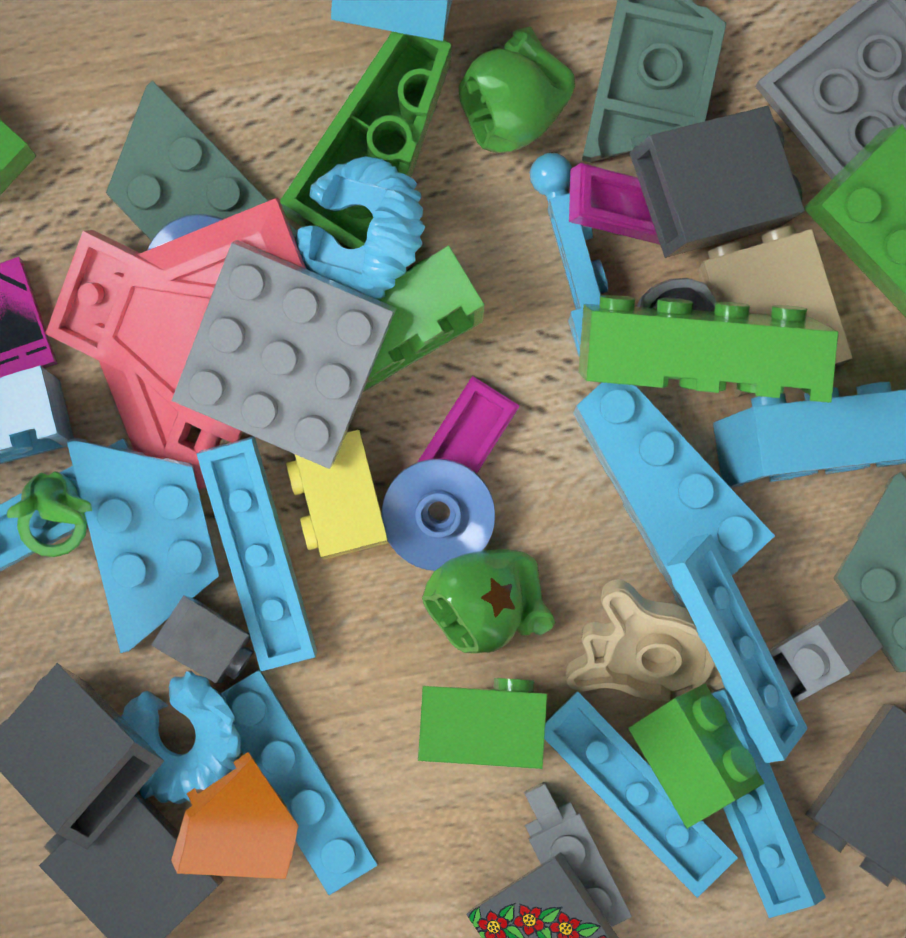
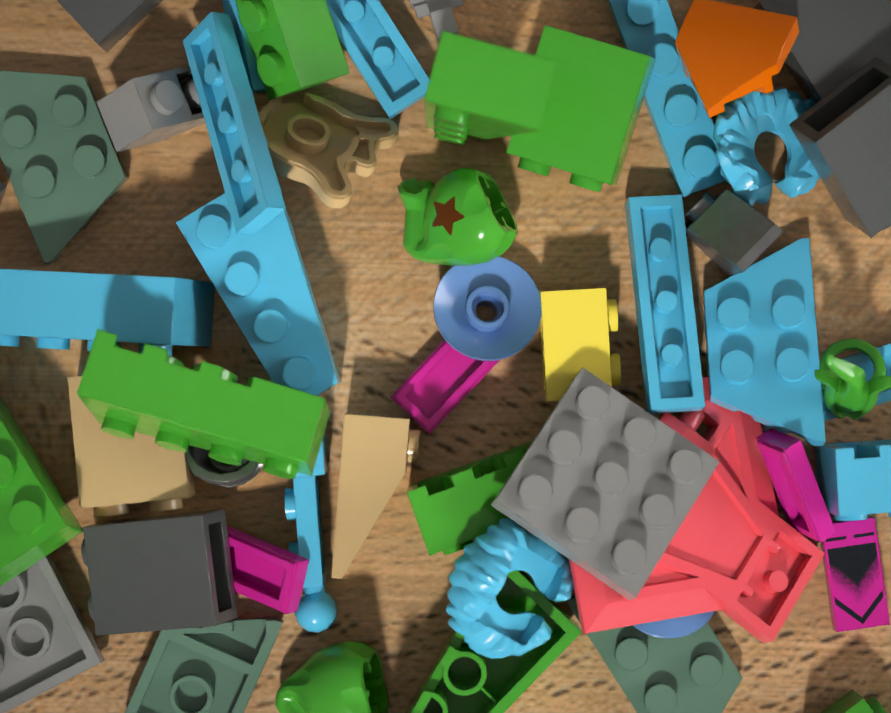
camera: 165 degrees left, 5 degrees up
(88, 394) = (795, 484): none -> dark pink tile
(374, 739) = (587, 111): none -> bright green brick
(524, 327) = (371, 469): none -> tan slope

